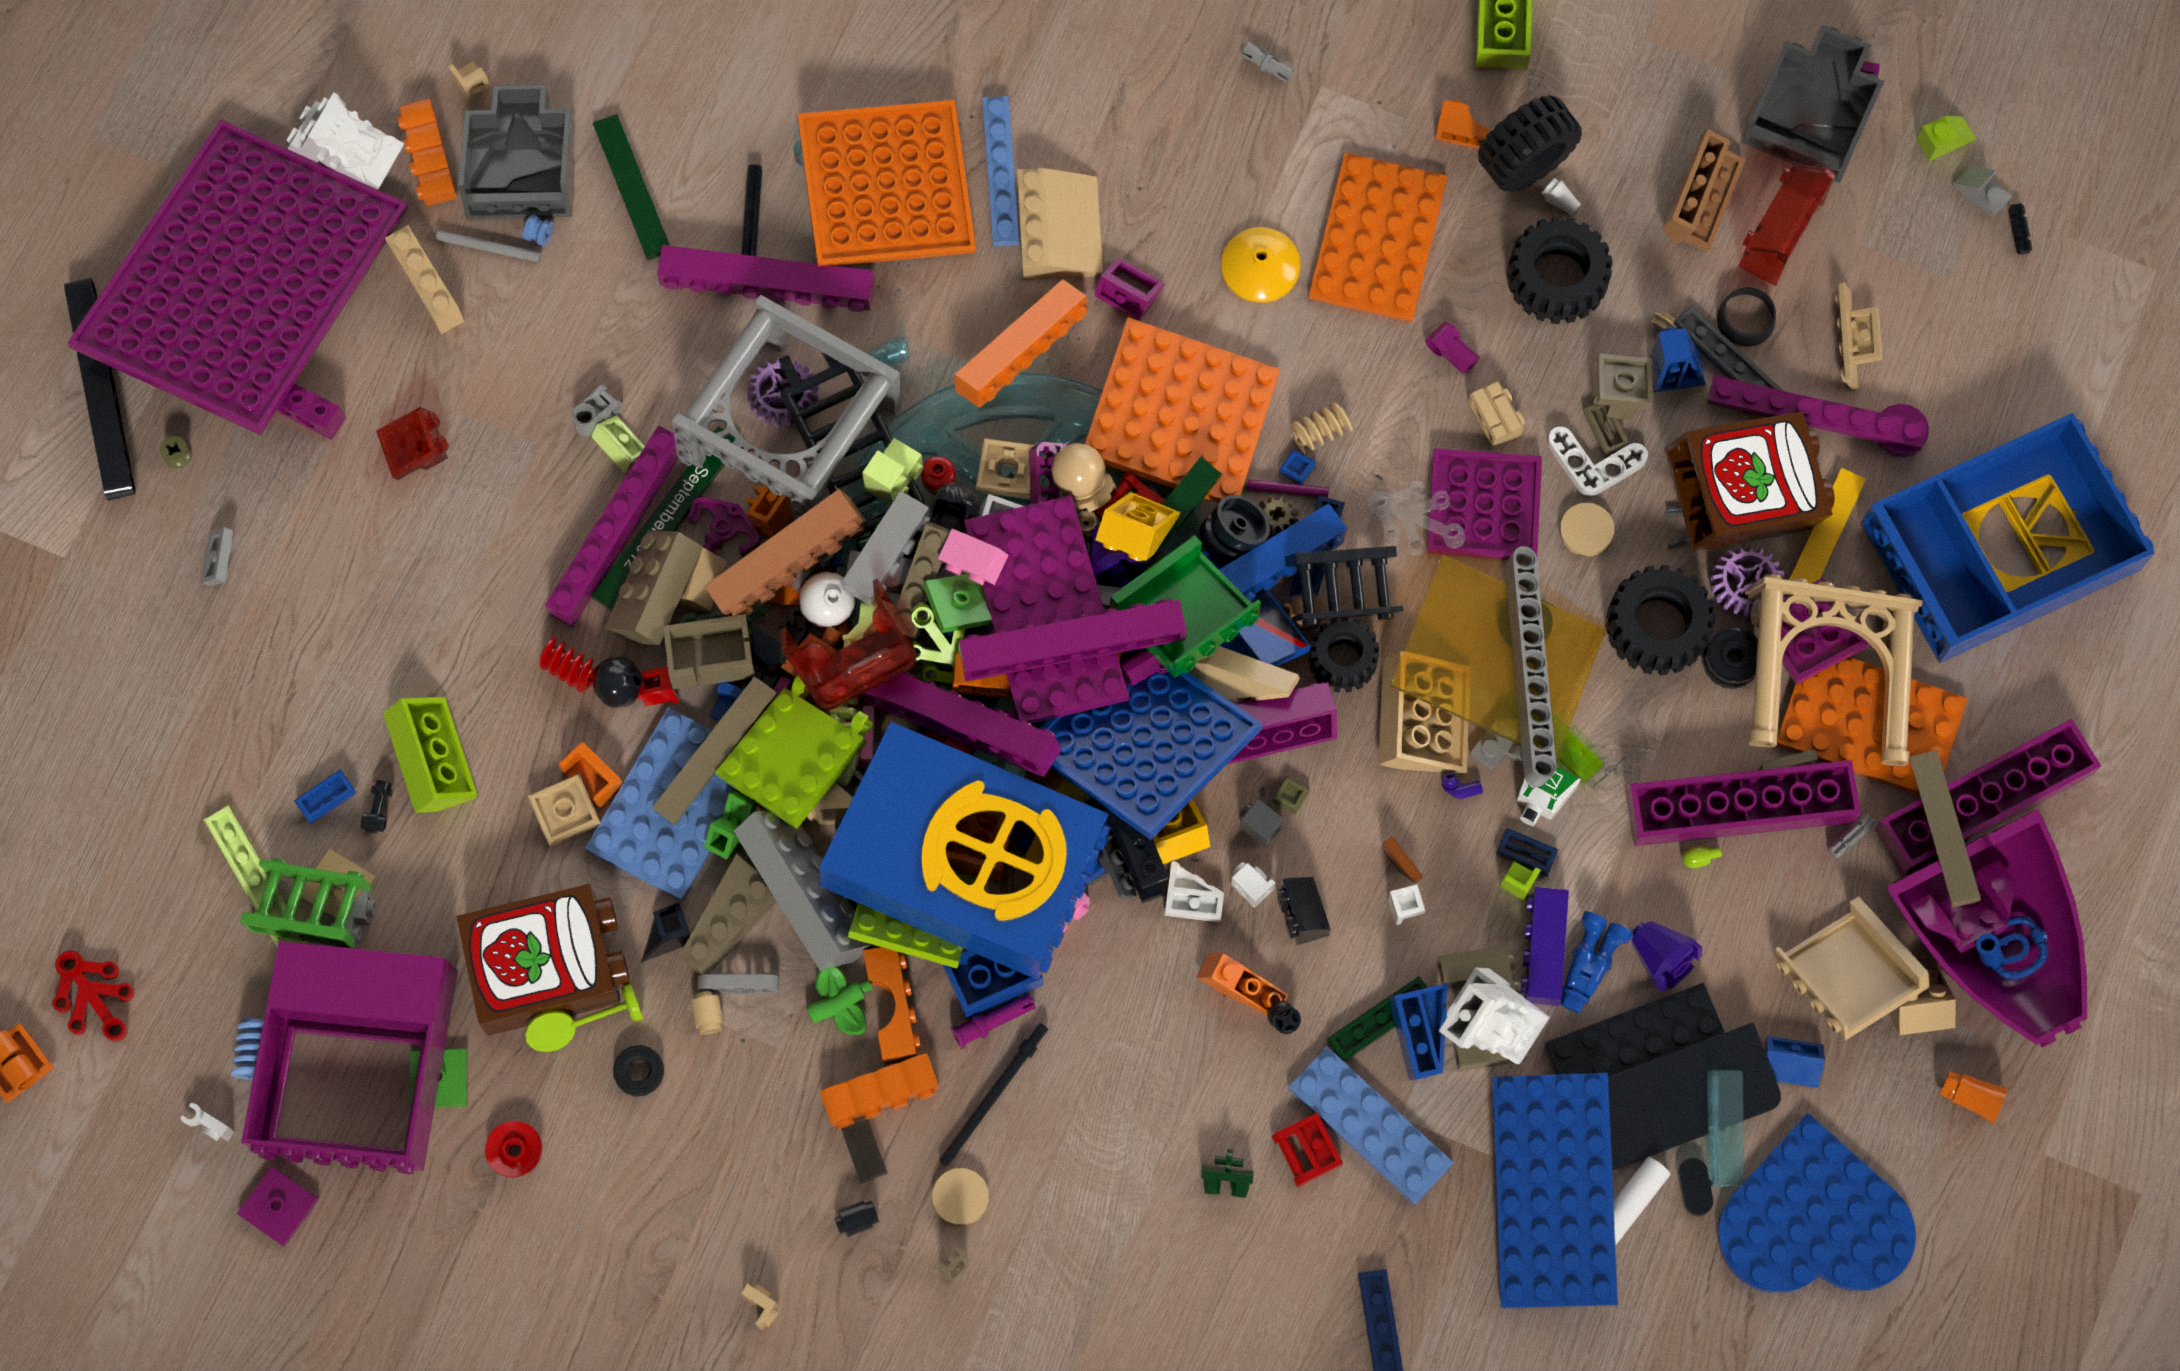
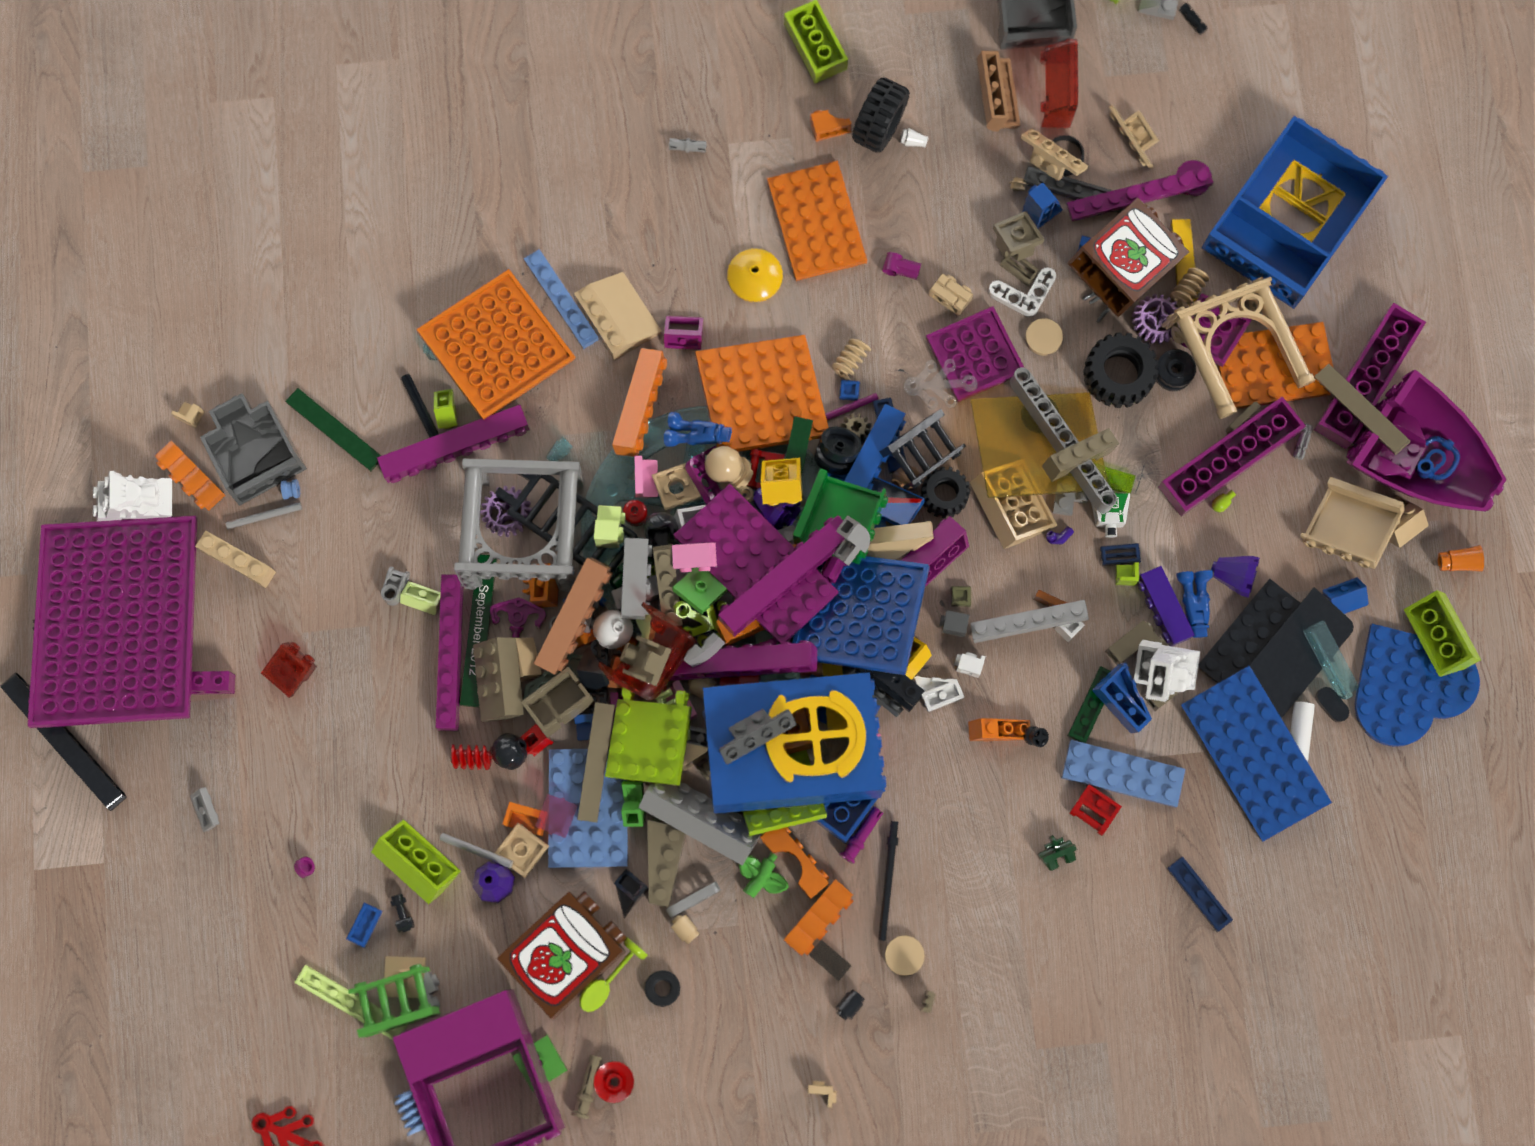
camera: 30 degrees left, 5 degrees up
(179, 457) = (141, 758): olive wheel -> none
(294, 688) = (304, 867): none -> magenta tile
(469, 1147) = (585, 1096): none -> dark tan pin
(509, 780) = (476, 850): none -> light grey bar
(509, 830) = (501, 884): none -> dark purple cone
(629, 789) = (556, 815): none -> clear pink piece
(779, 230) = (445, 409): none -> lime slope
(841, 653) = (645, 660): none -> dark tan panel
(910, 683) = (698, 655): none -> light grey slope
(920, 807) = (755, 732): none -> dark grey bracket
(969, 440) = (644, 482): none -> bright pink panel
(1074, 417) = (701, 432): none -> blue piece
(1182, 640) = (856, 539): none -> light grey brick
(1304, 909) = (1010, 664): black slope -> none
(1357, 869) = (1029, 621): none -> light grey plate
(1515, 690) = (1073, 456): none -> dark tan arch
(1565, 239) = (945, 163): black tyre -> none
(1725, 307) = (1051, 157): none -> tan bracket
(1811, 559) = (1189, 287): none -> tan piece
(1890, 1172) = (1442, 634): none -> lime slope

